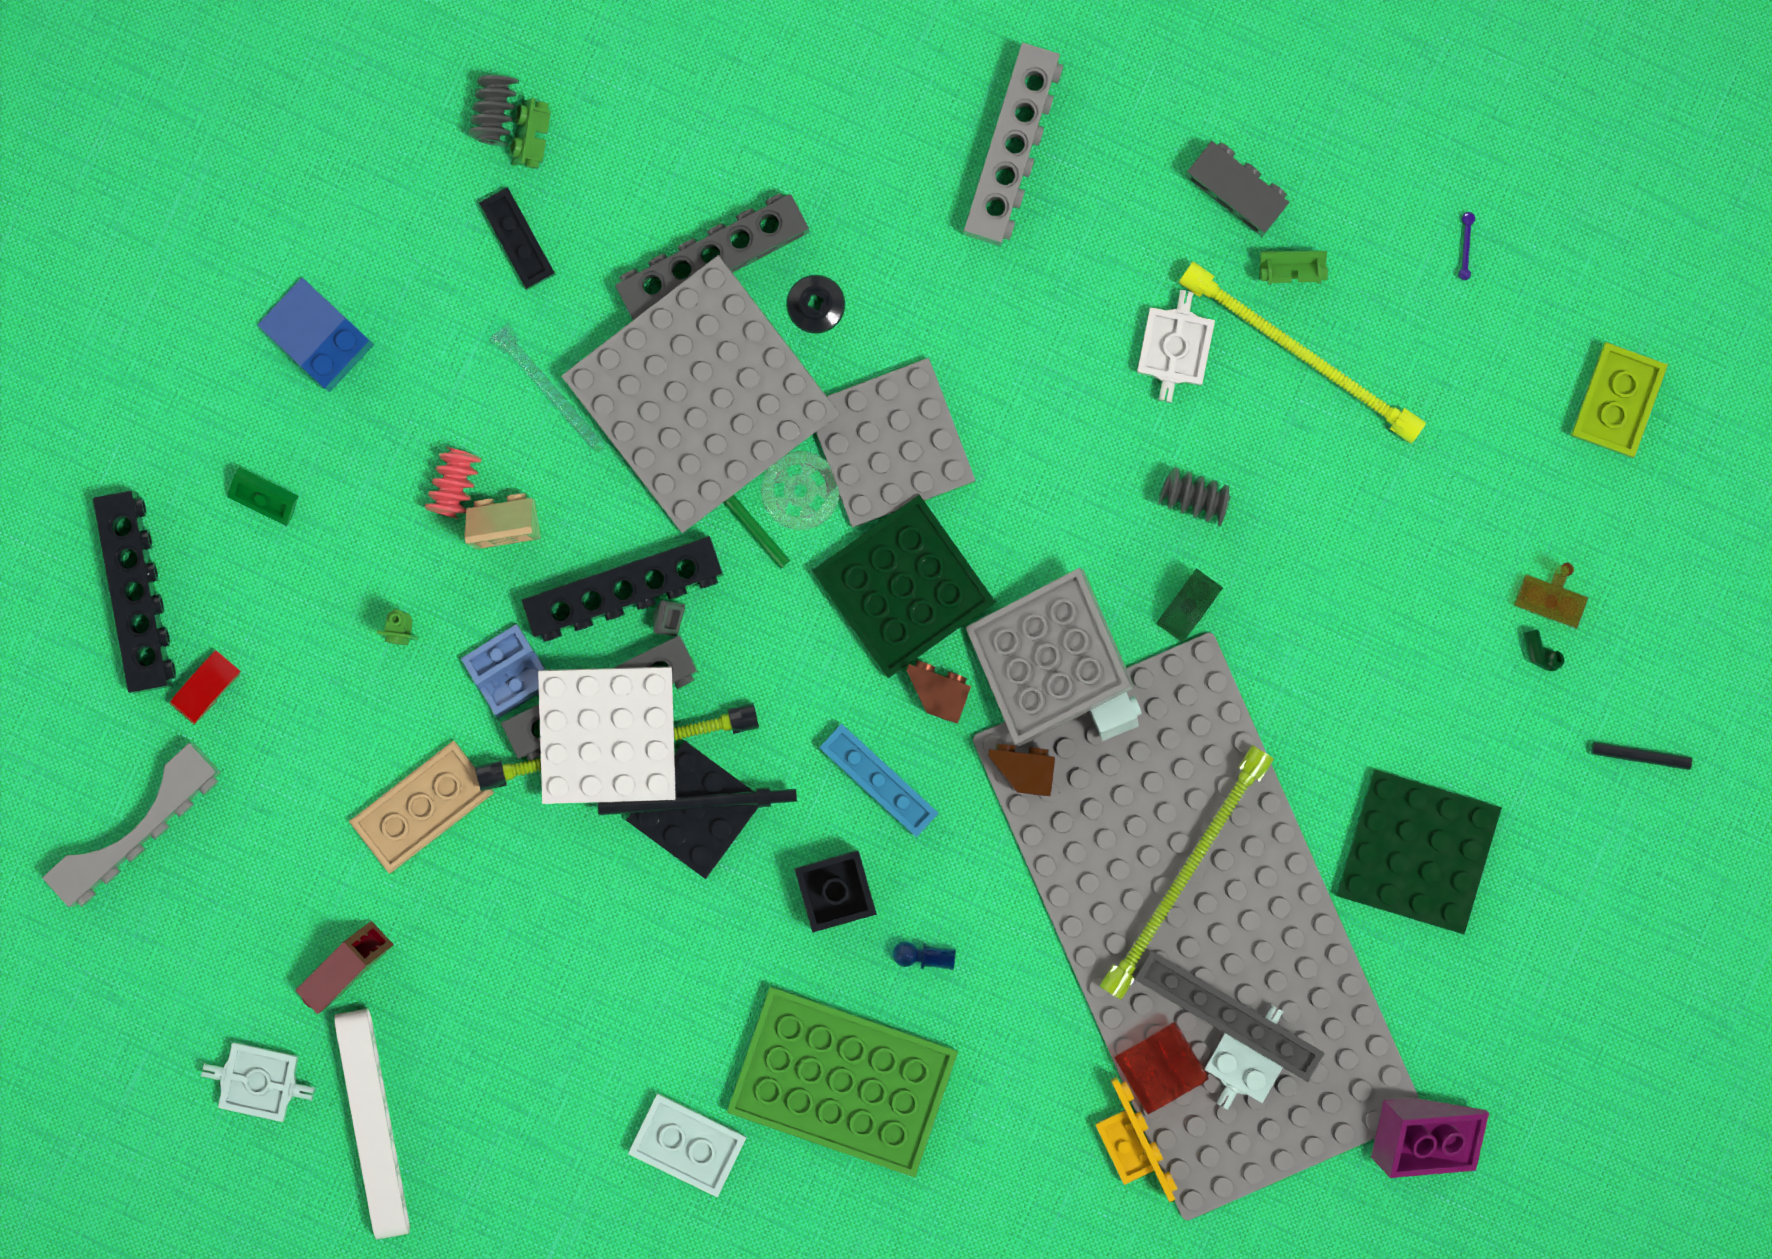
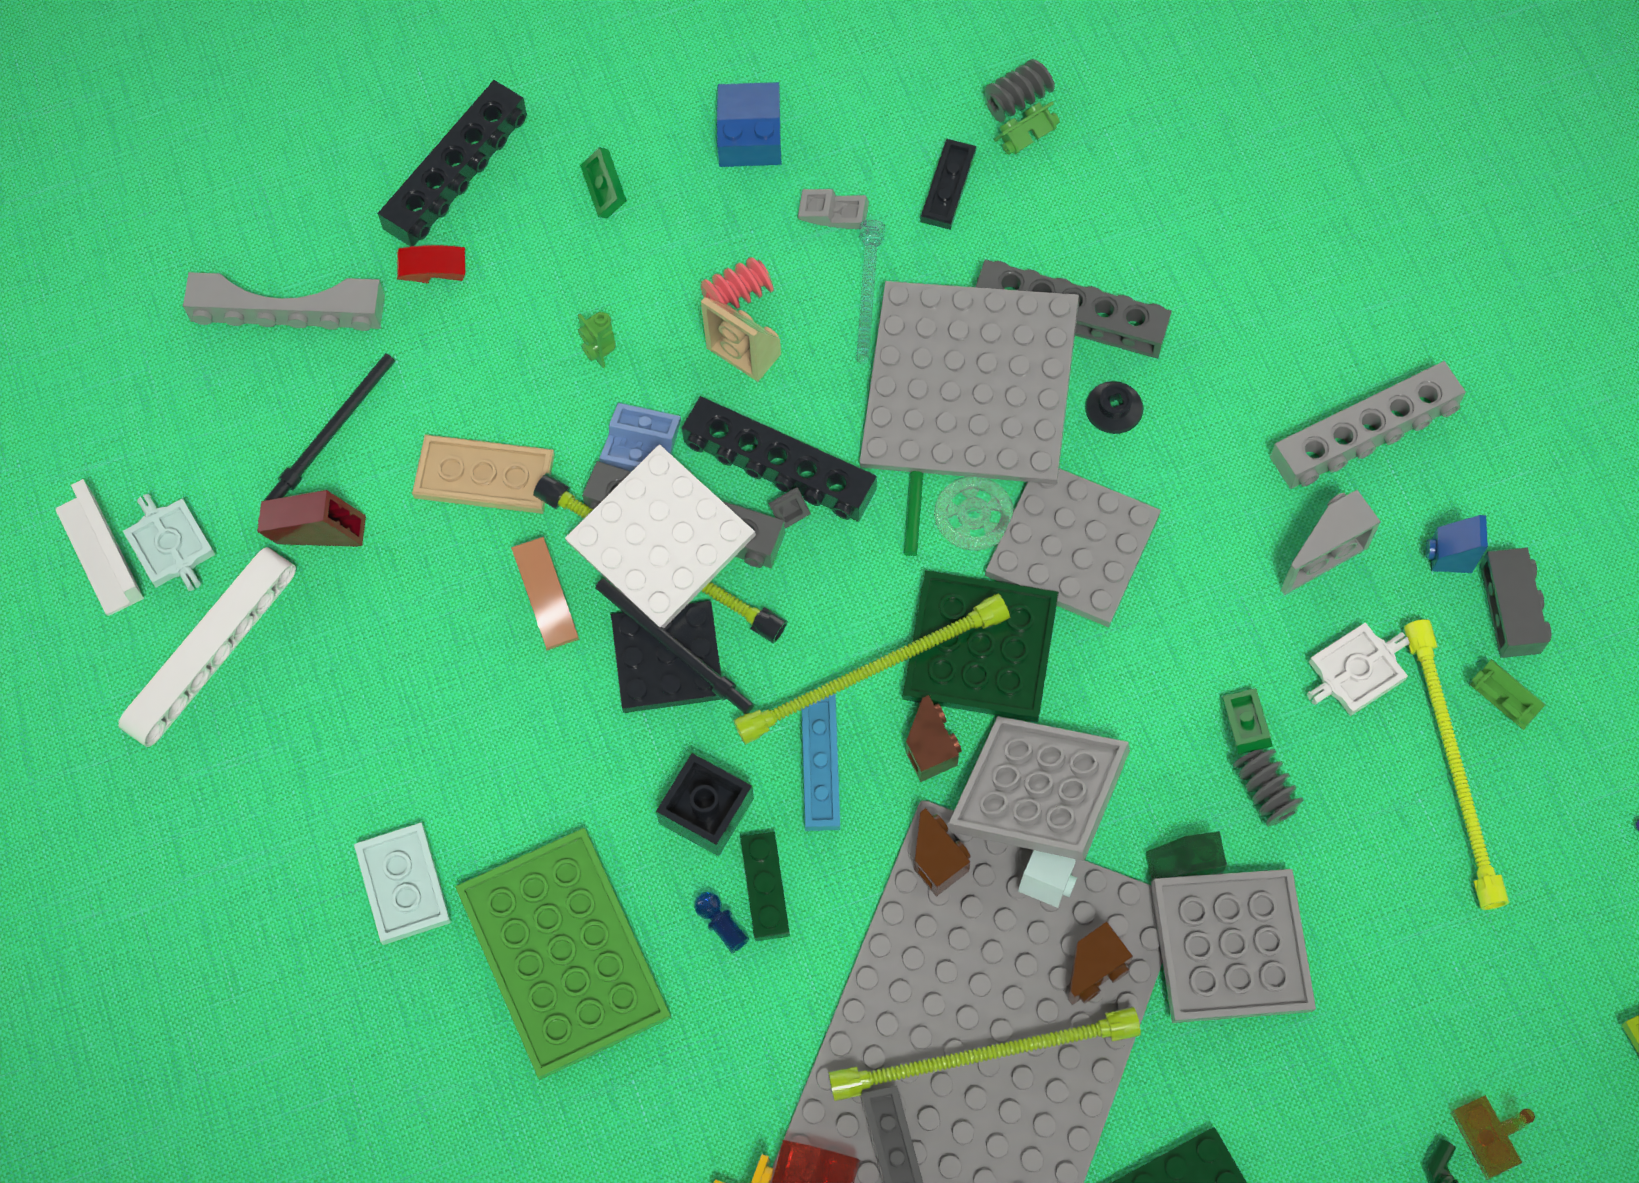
camera: 40 degrees right, 20 degrees down
(213, 1136) = (98, 551): none -> white panel
(288, 949) = (291, 476): none -> black bar
(454, 345) = (829, 210): none -> light grey slope
(565, 852) = (545, 593): none -> nougat slope
(811, 799) = (987, 613): none -> lime hose
(928, 902) = (765, 886): none -> dark green plate
(1071, 264) = (1338, 536): none -> light grey slope
(1138, 464) = (1247, 721): none -> green plate
(1161, 186) = (1458, 545): none -> blue slope
(1199, 738) = (1096, 960): none -> reddish brown slope
(1275, 635) = (1232, 946): none -> light grey plate

